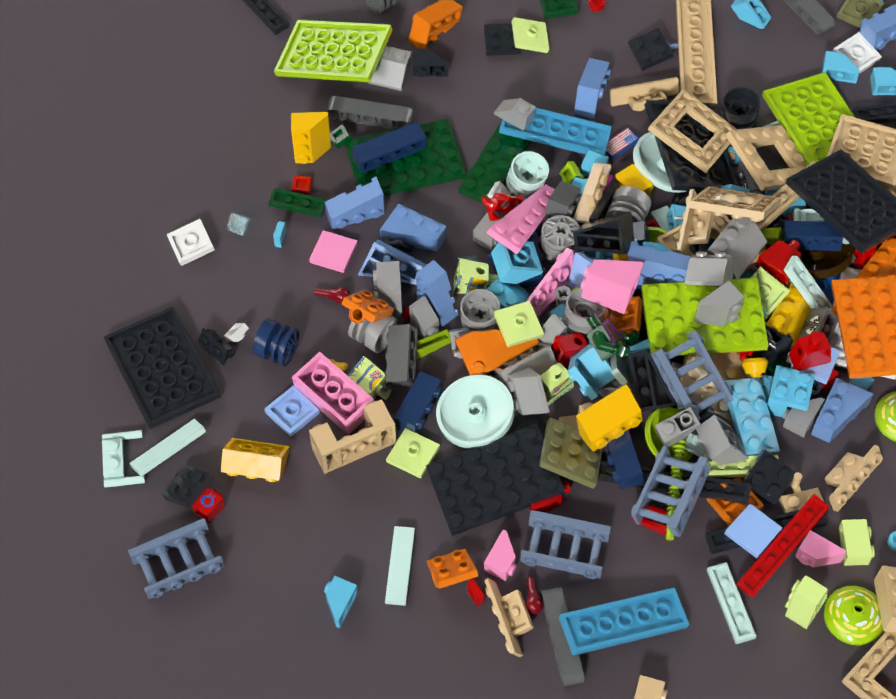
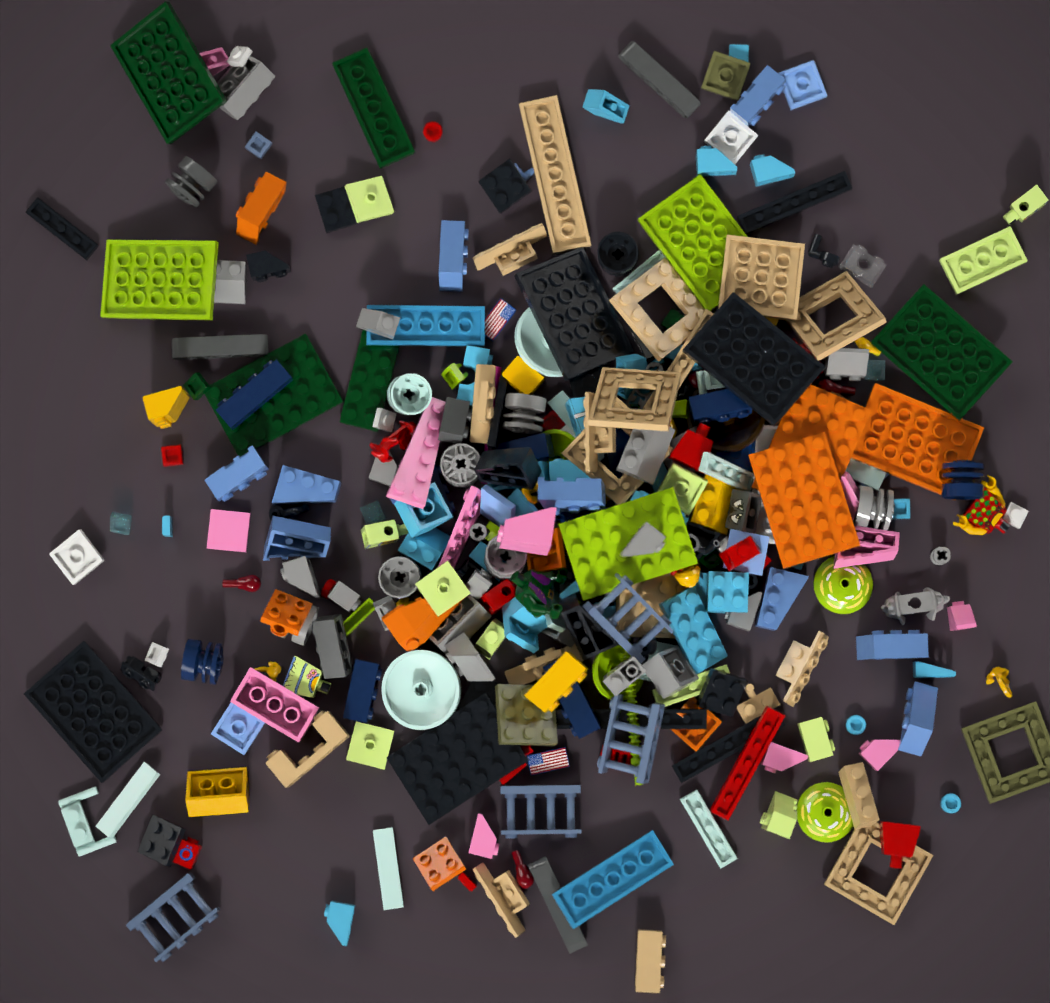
camera: 15 degrees left, 25 degrees up
(297, 202) = (174, 481): dark green plate -> none
(435, 286) = (348, 567): medium blue wedge -> none
(582, 505) = (548, 761): none -> tile
(701, 157) = (541, 310): tan plate -> none
(709, 269) = (623, 494): light grey slope -> none
(753, 531) = (717, 754): light blue tile -> none

